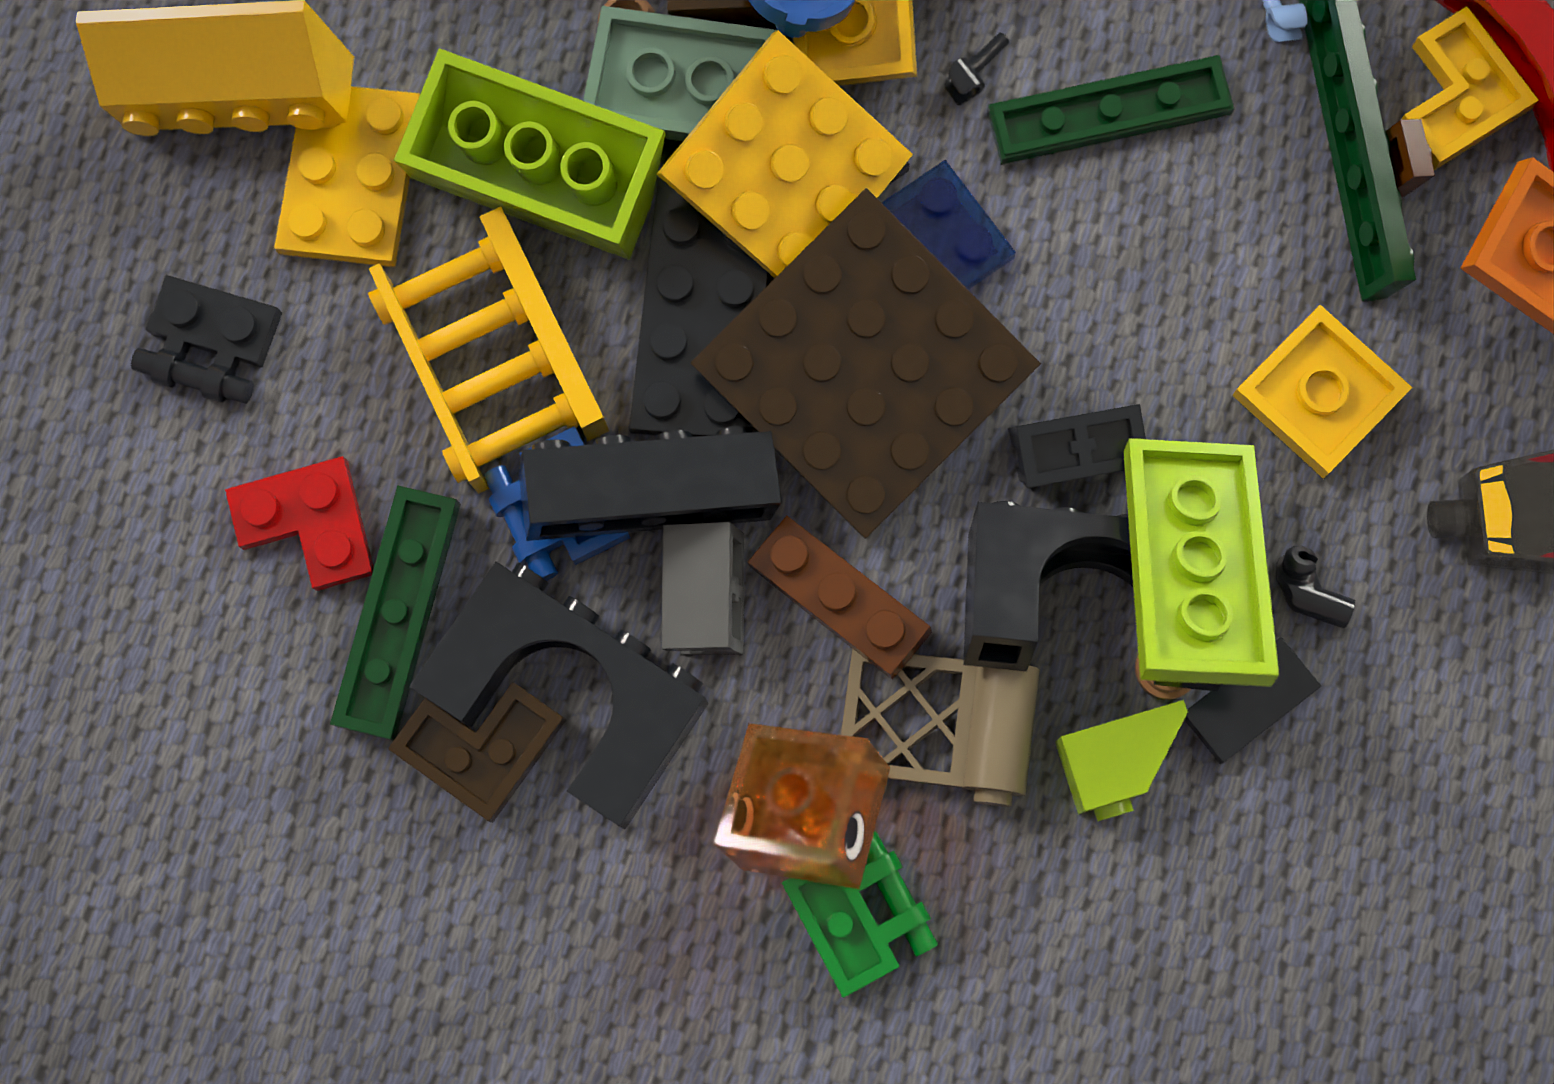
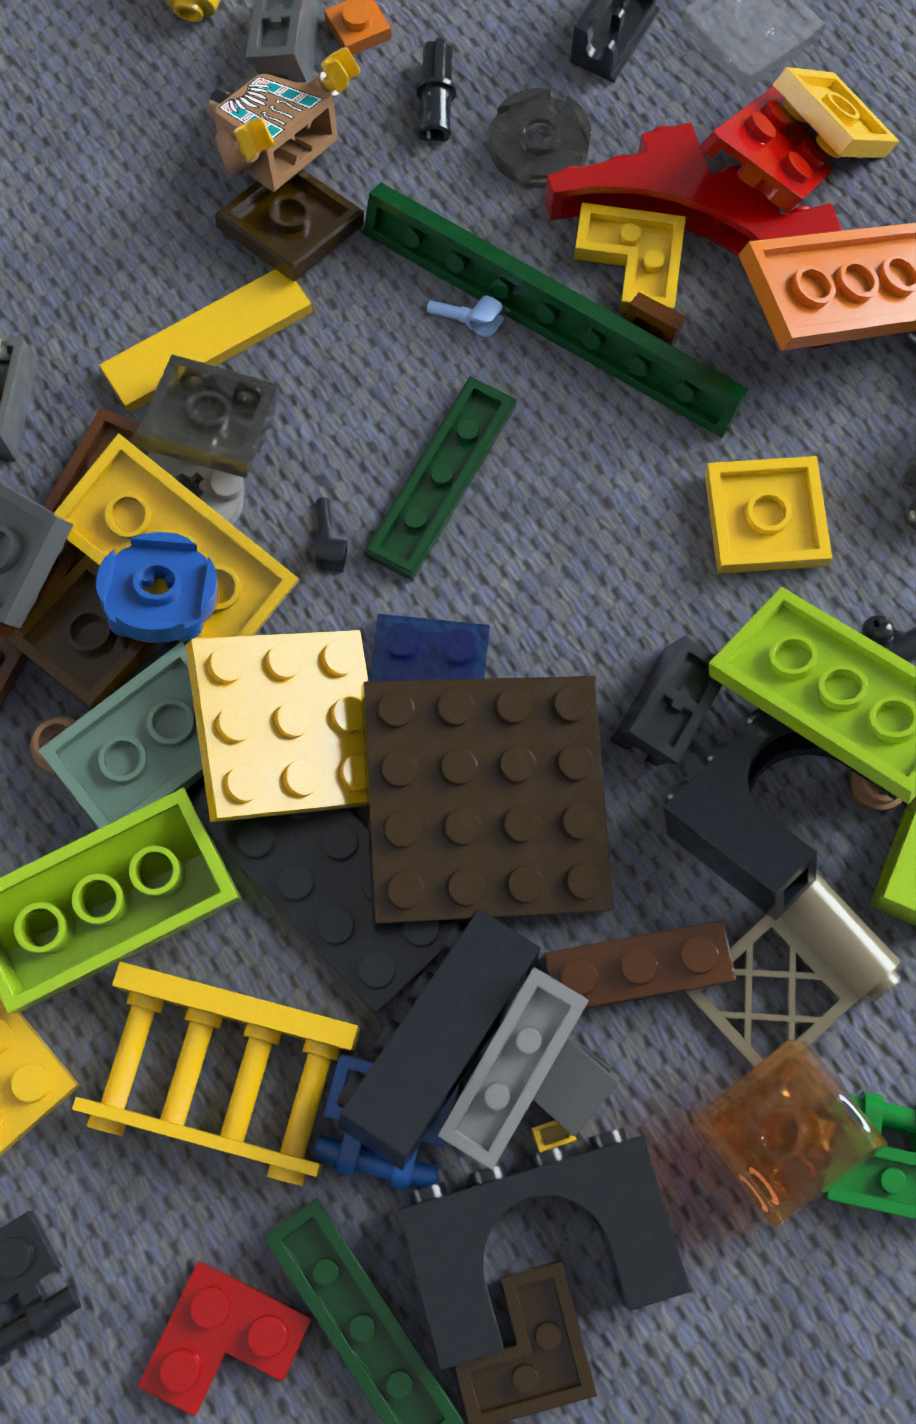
camera: 60 degrees left, 5 degrees down
(651, 635) = (551, 1136): none -> yellow piece
(670, 555) = (513, 1068): none -> light grey plate

